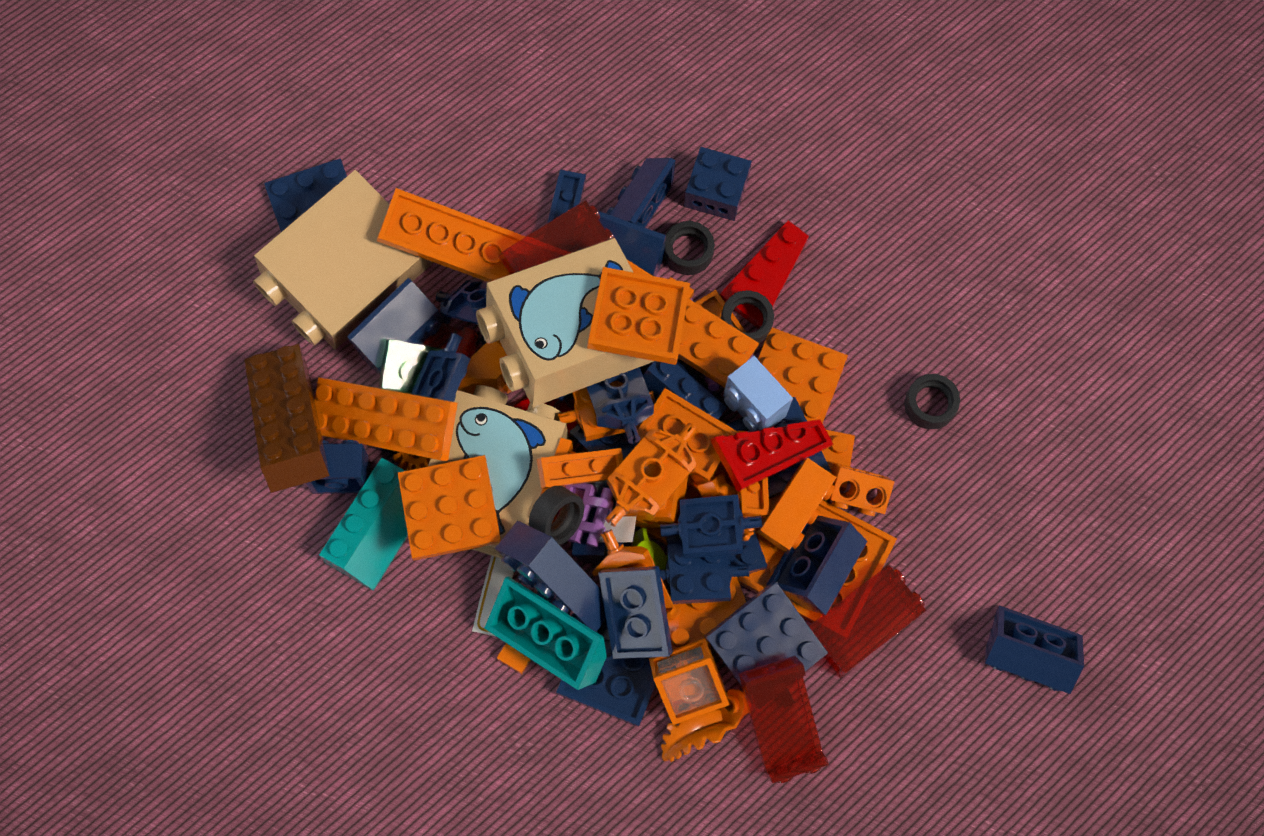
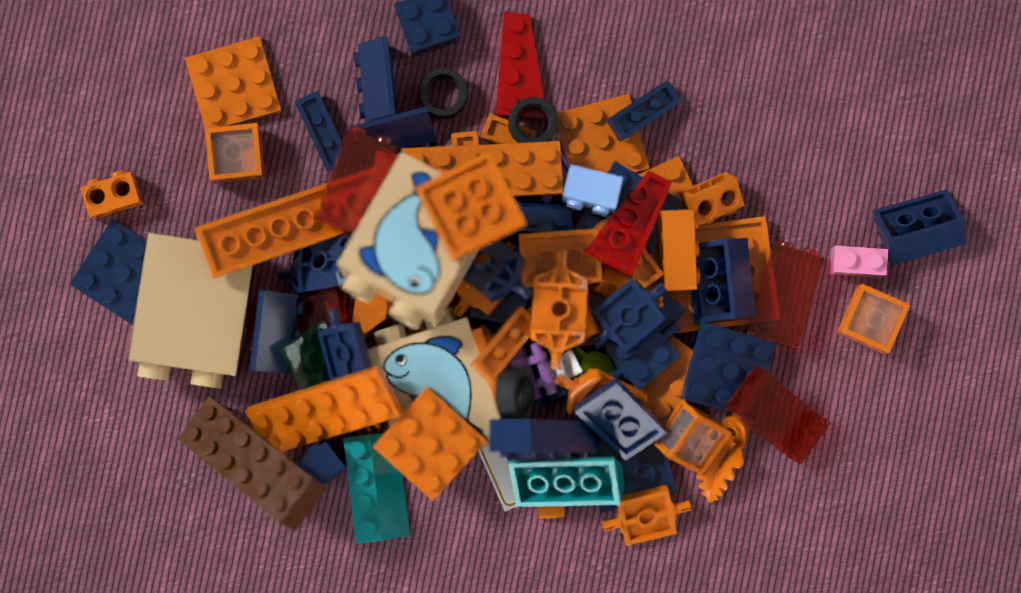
camera: 30 degrees left, 15 degrees up
(352, 145) = (113, 201): none -> orange brick
(479, 173) = (235, 153): none -> piece
(521, 127) = (233, 84): none -> orange plate
(595, 724) = (646, 515): none -> orange plate
(851, 374) = (643, 110): none -> dark blue plate
(934, 698) = (873, 319): none -> piece
(946, 387) = (734, 73): black tyre -> none
(956, 638) = (858, 261): none -> bright pink brick

